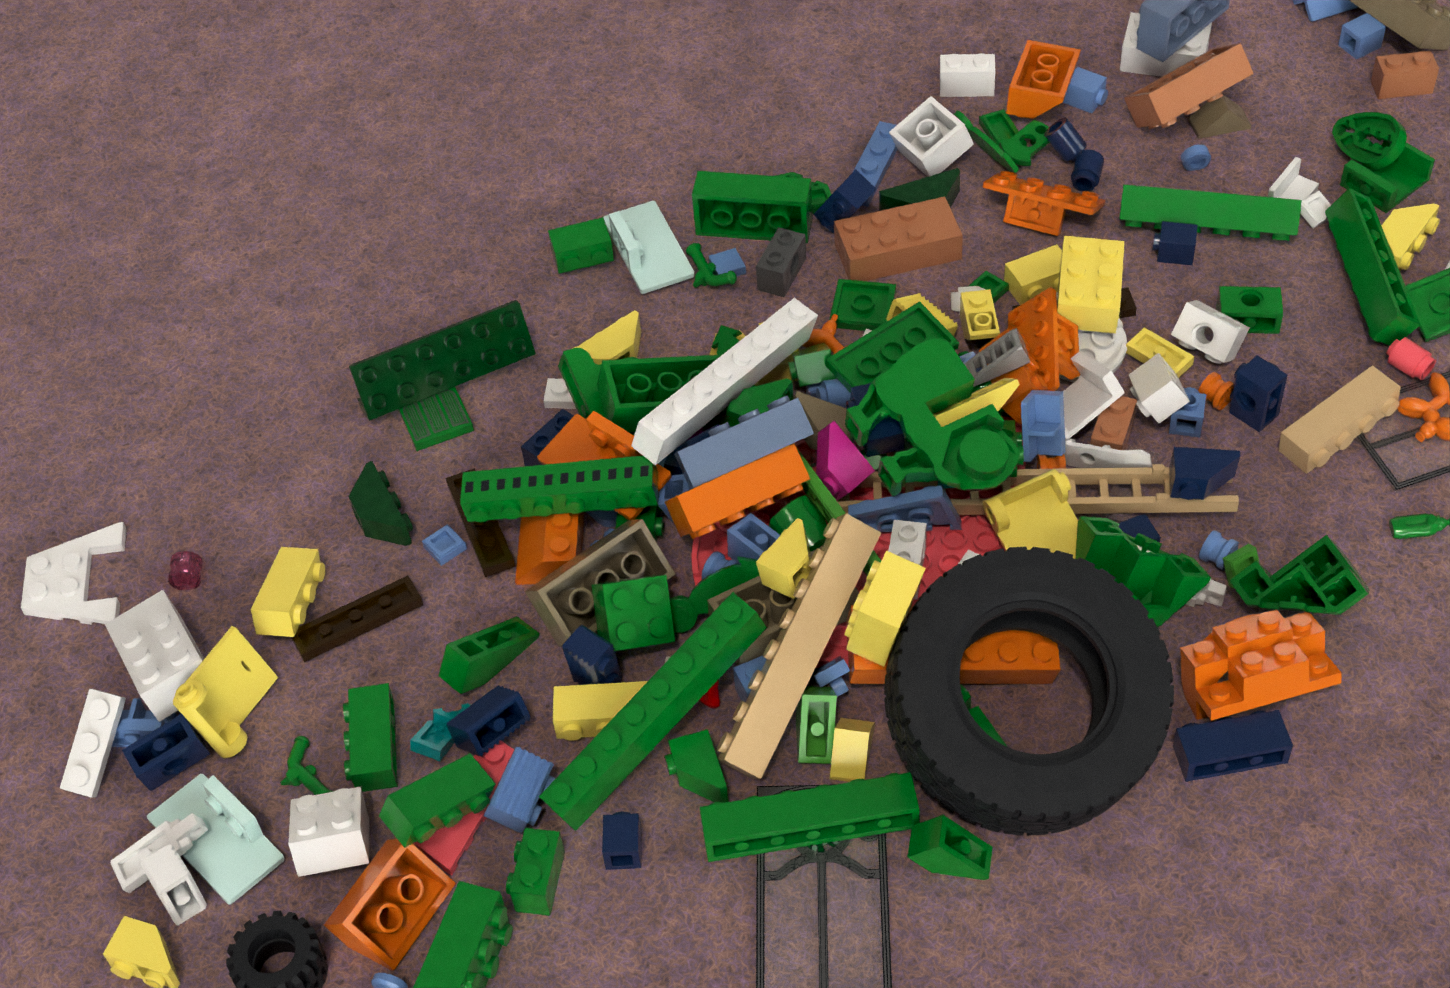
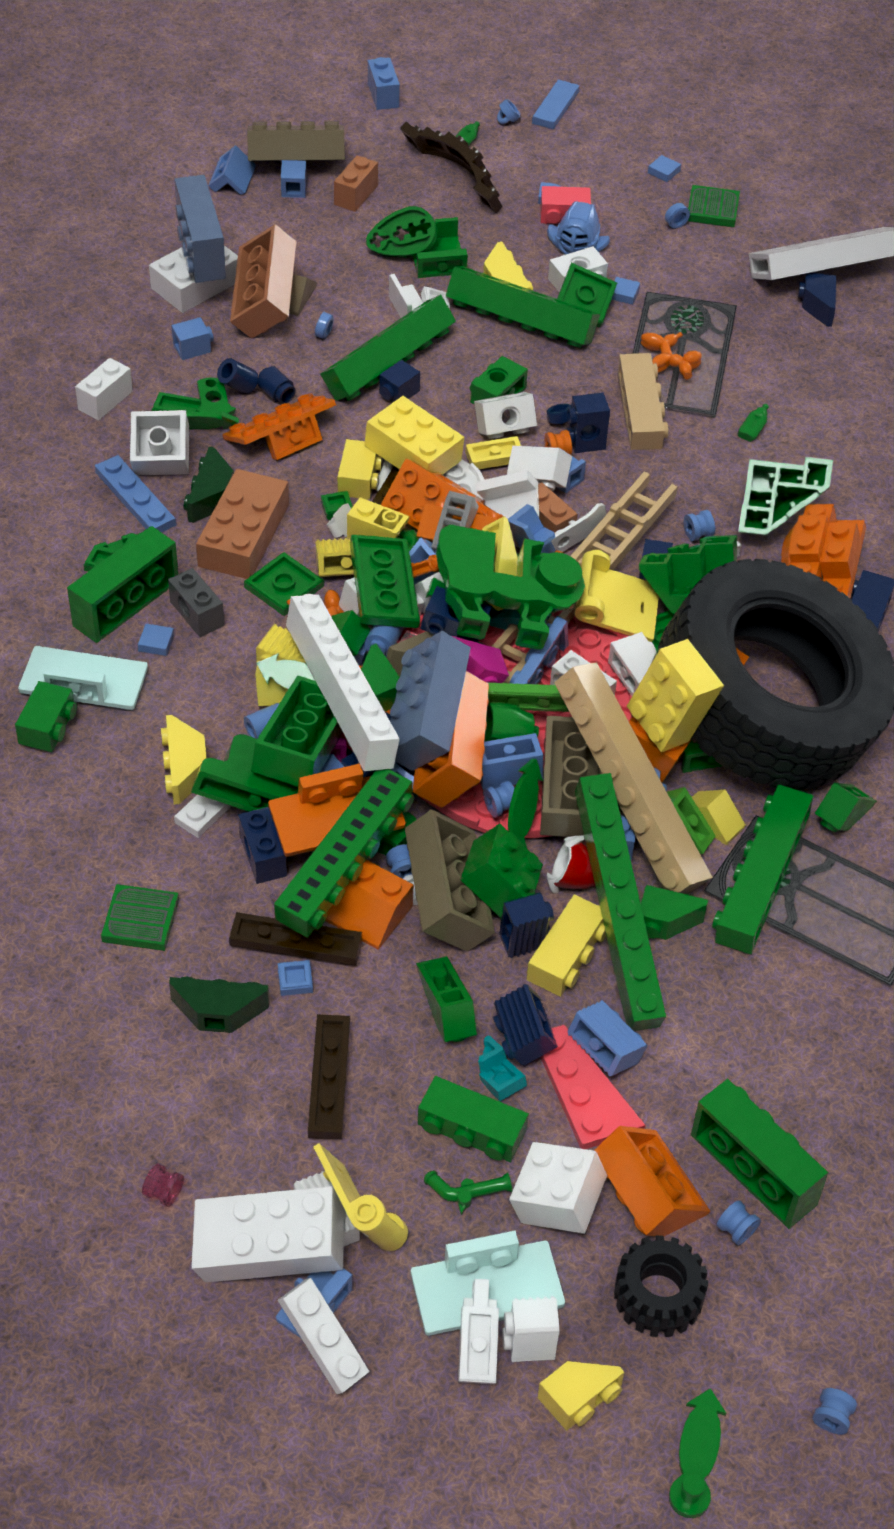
camera: 65 degrees left, 0 degrees up
(59, 578) = (80, 1303): white wing -> none
(166, 752) = (378, 1279): dark blue brick -> none
(287, 591) = (266, 1108): light yellow brick -> none
(437, 800) = (599, 1086): green brick -> none
(442, 360) = (102, 876): dark green bracket -> none
(536, 871) = (692, 1061): green brick -> none
(622, 841) = (700, 994): dark blue brick -> none
(705, 274) = (152, 653): green piece -> none
(786, 560) = (559, 737): light yellow slope -> none
(845, 200) = (183, 522): dark blue brick -> none
(1041, 78) = (162, 350): orange slope -> none
(1200, 471) = (644, 487): dark blue slope -> none
(1239, 560) = (723, 519): bright green tile -> none
(1410, 358) = (615, 339): coral brick -> none

